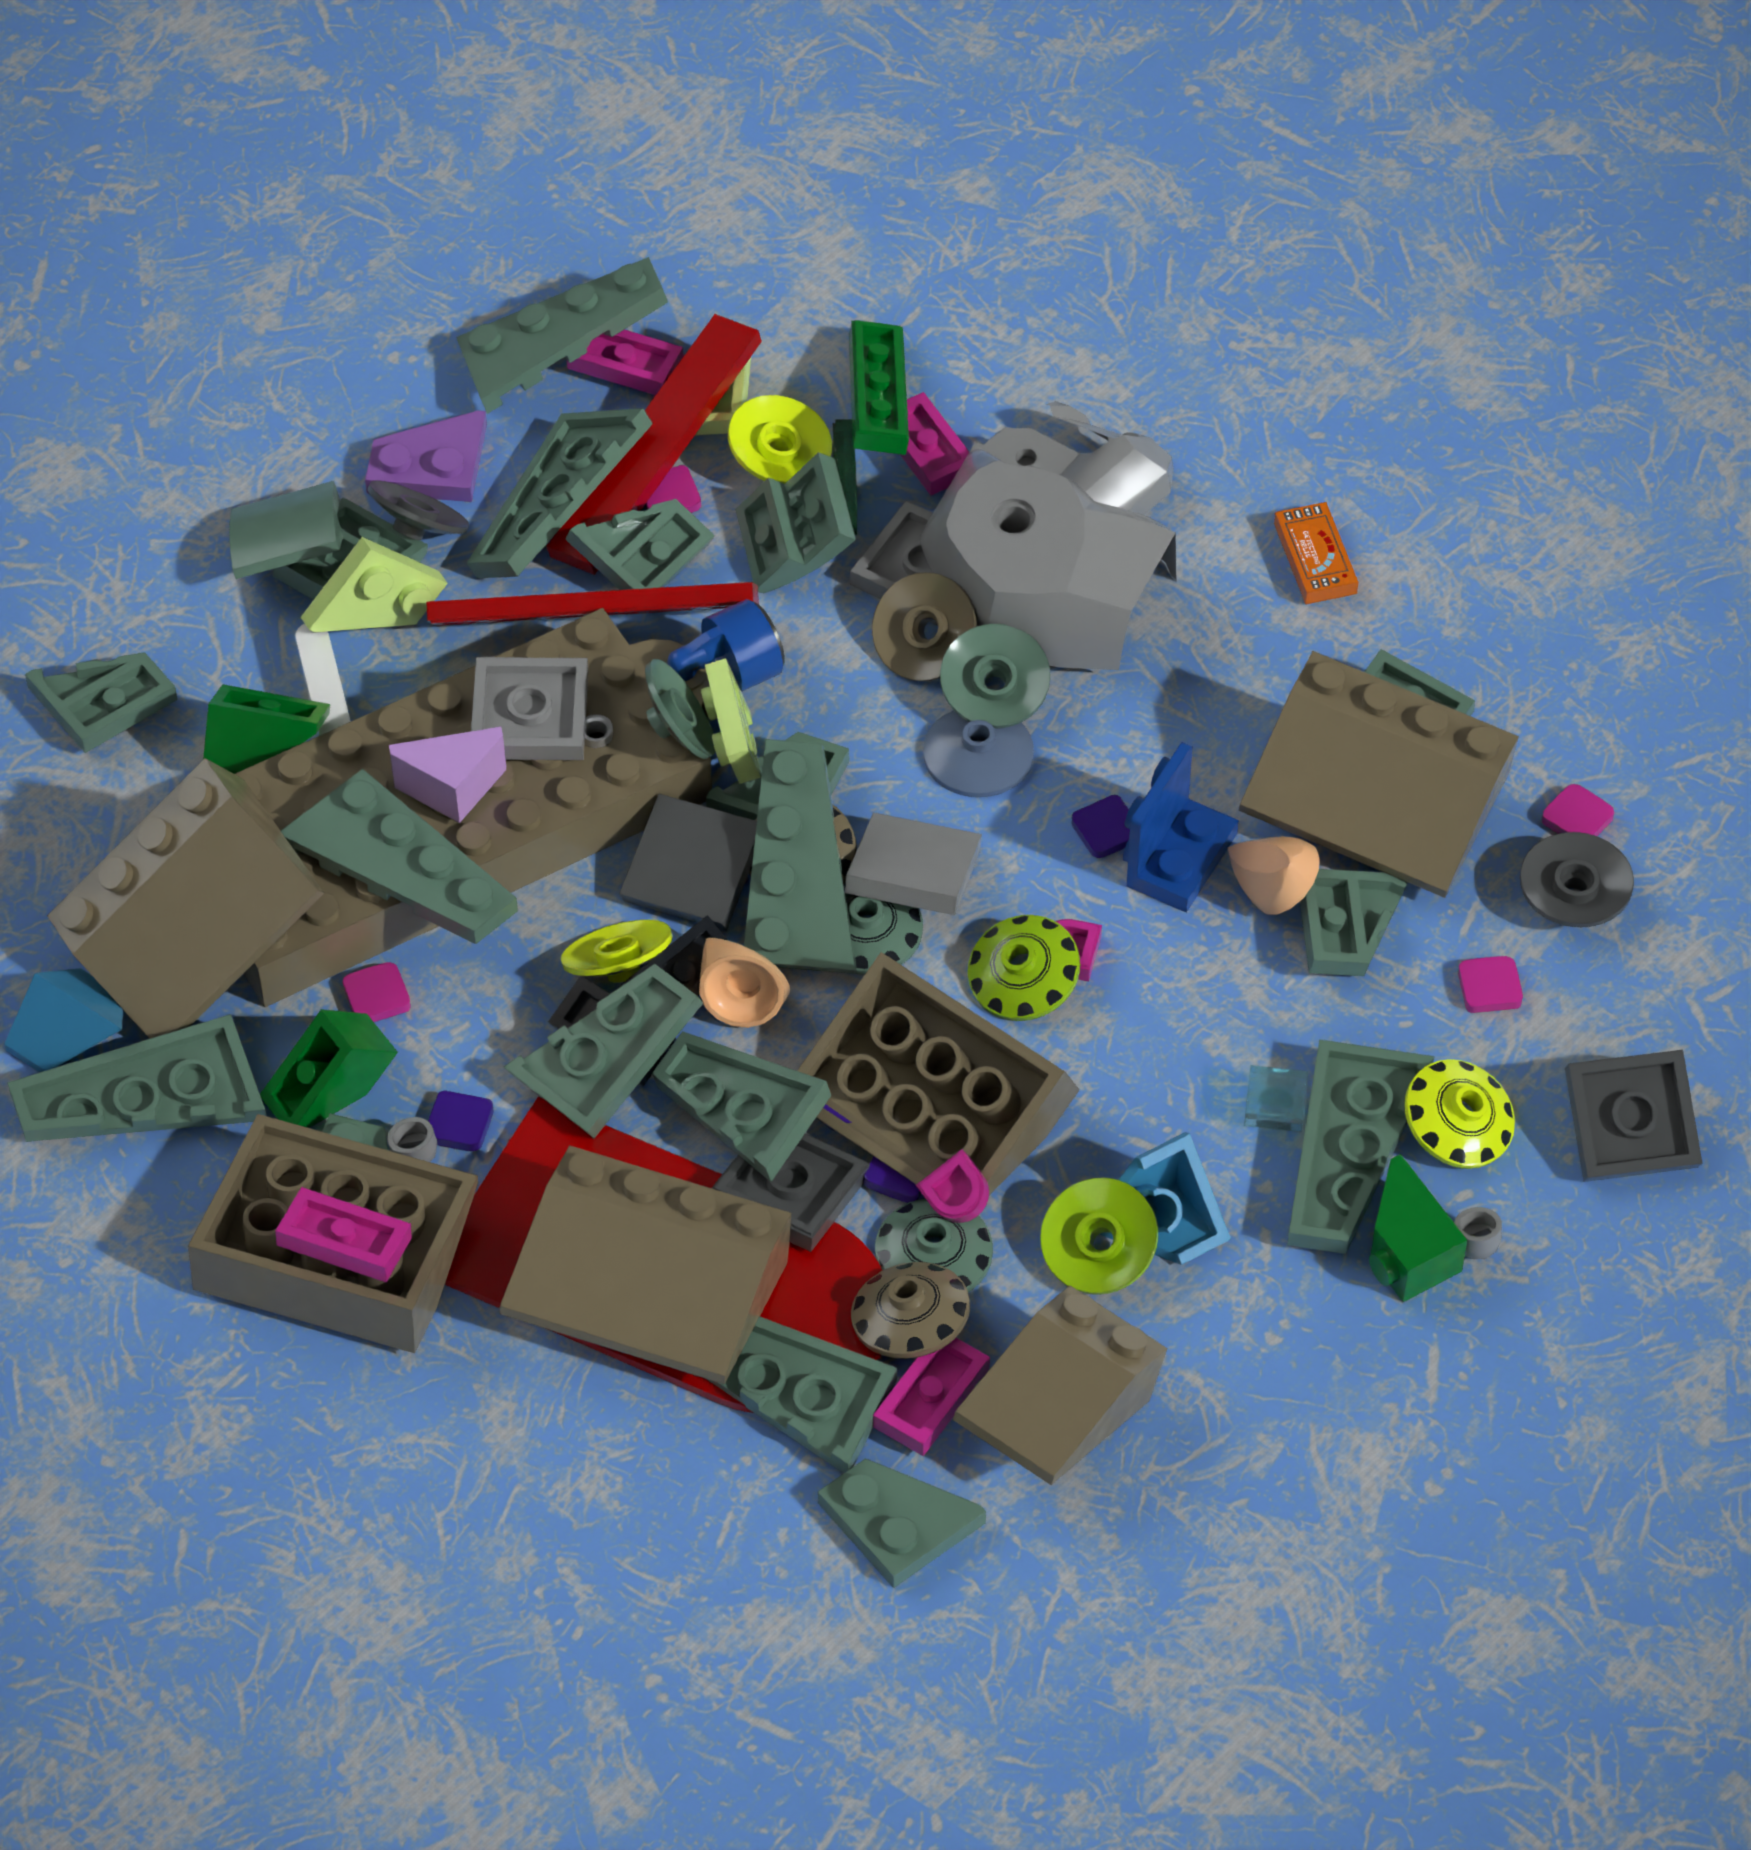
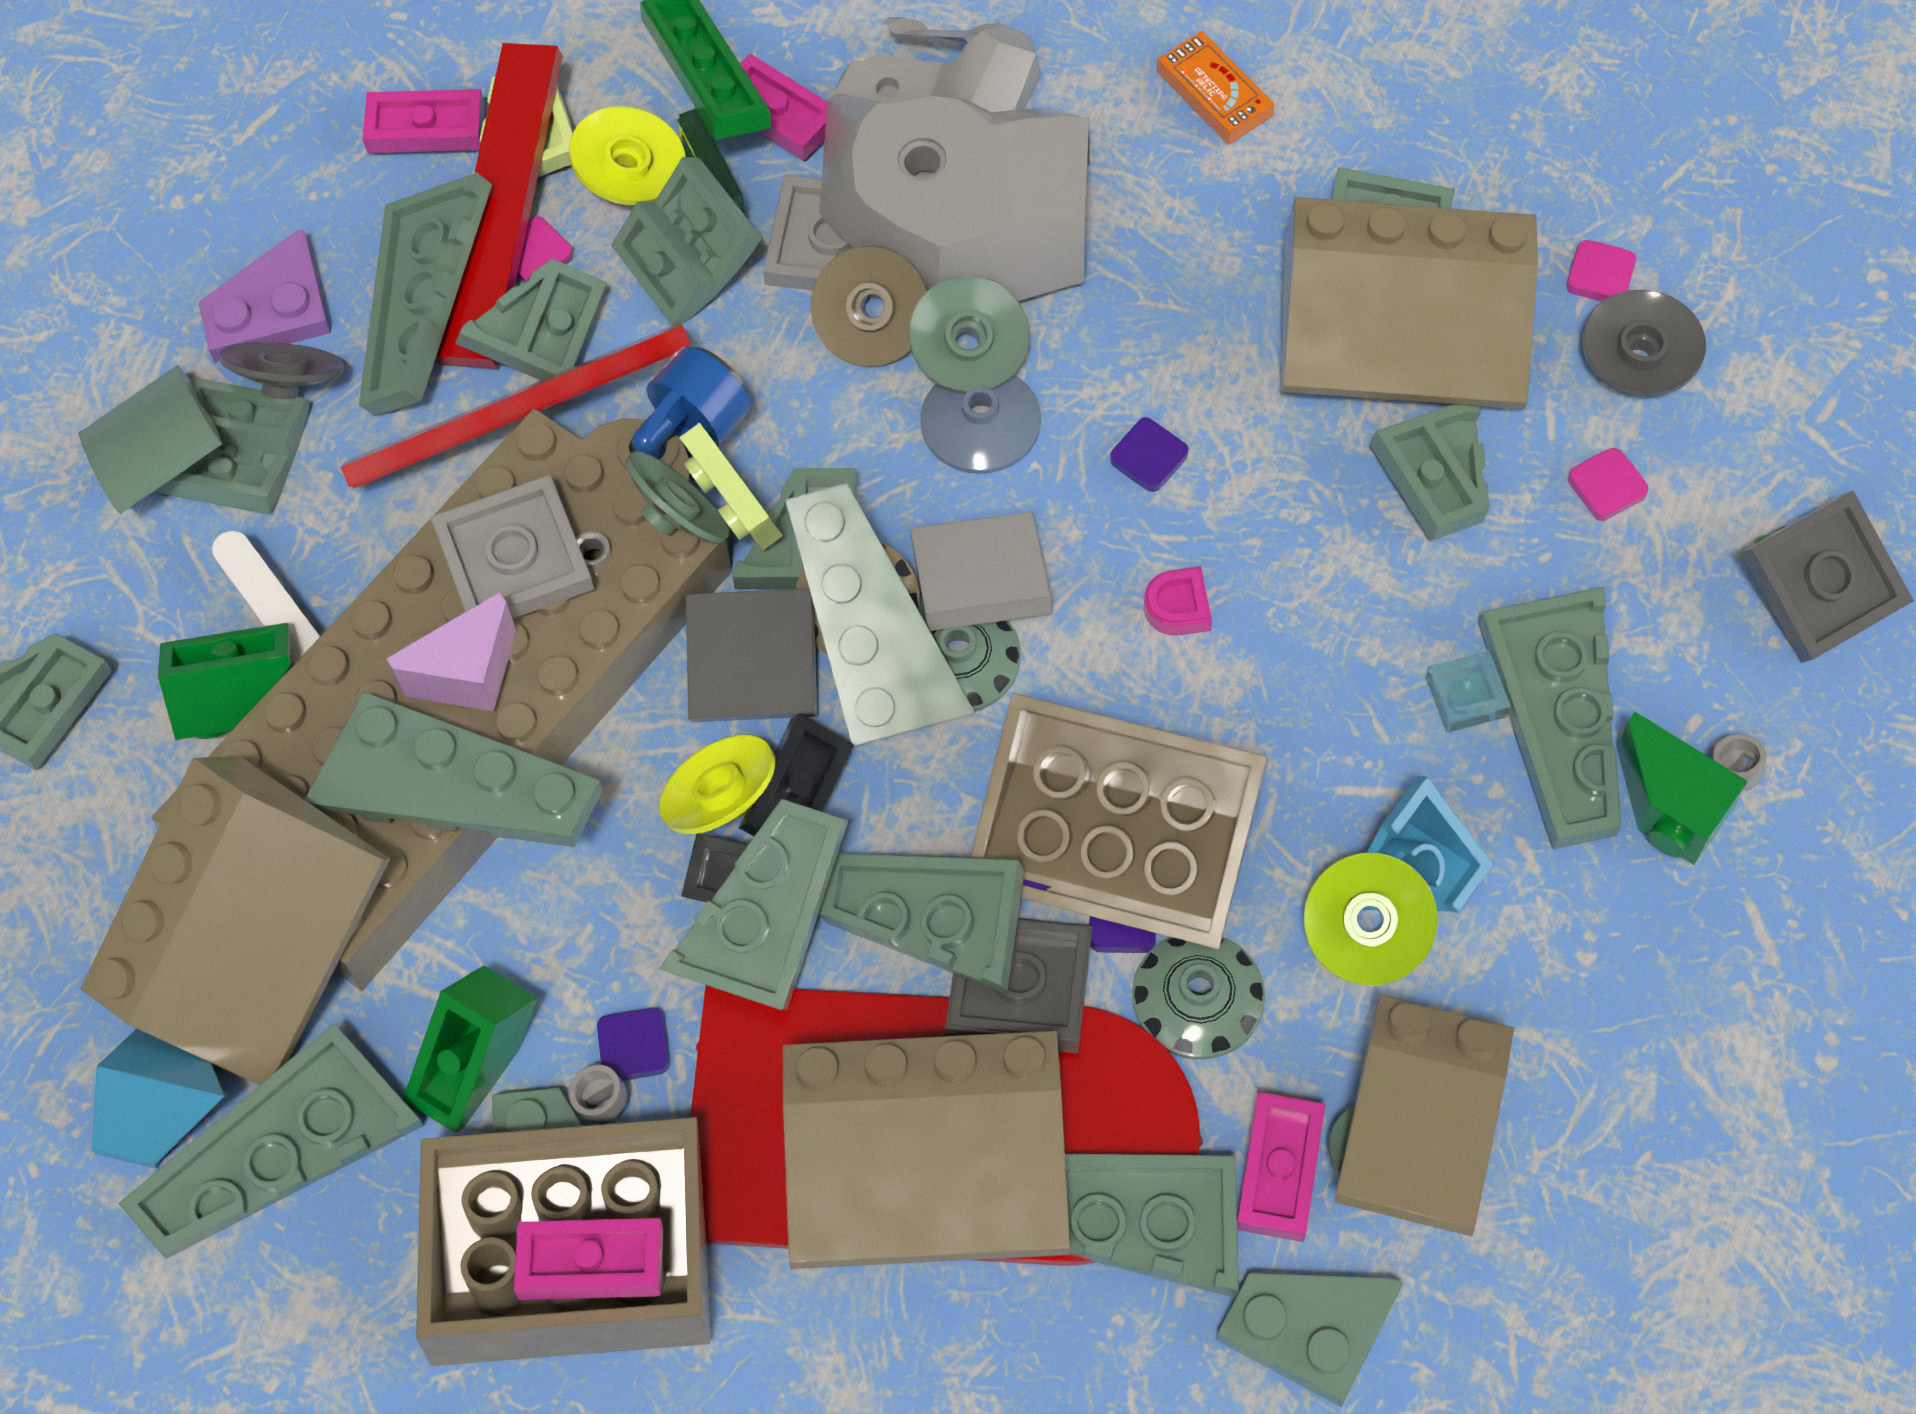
camera: 20 degrees left, 10 degrees up
(374, 591) = (277, 475): yellowish green wing -> none
(377, 991) = (477, 929): dark pink piece -> none
(530, 340) = (325, 129): sand green wing -> none
(740, 984) = (866, 776): light nougat piece -> none
(910, 1310) = (1224, 1107): dark tan dish -> none
(956, 1189) = (1201, 925): dark pink tile -> none
(1029, 988) = (1151, 672): lime dish -> none
(1173, 838) = (1233, 447): blue bracket -> none
(1275, 871) = (1350, 444): light nougat piece -> none
(1446, 1126) = (1654, 638): neon yellow dish -> none

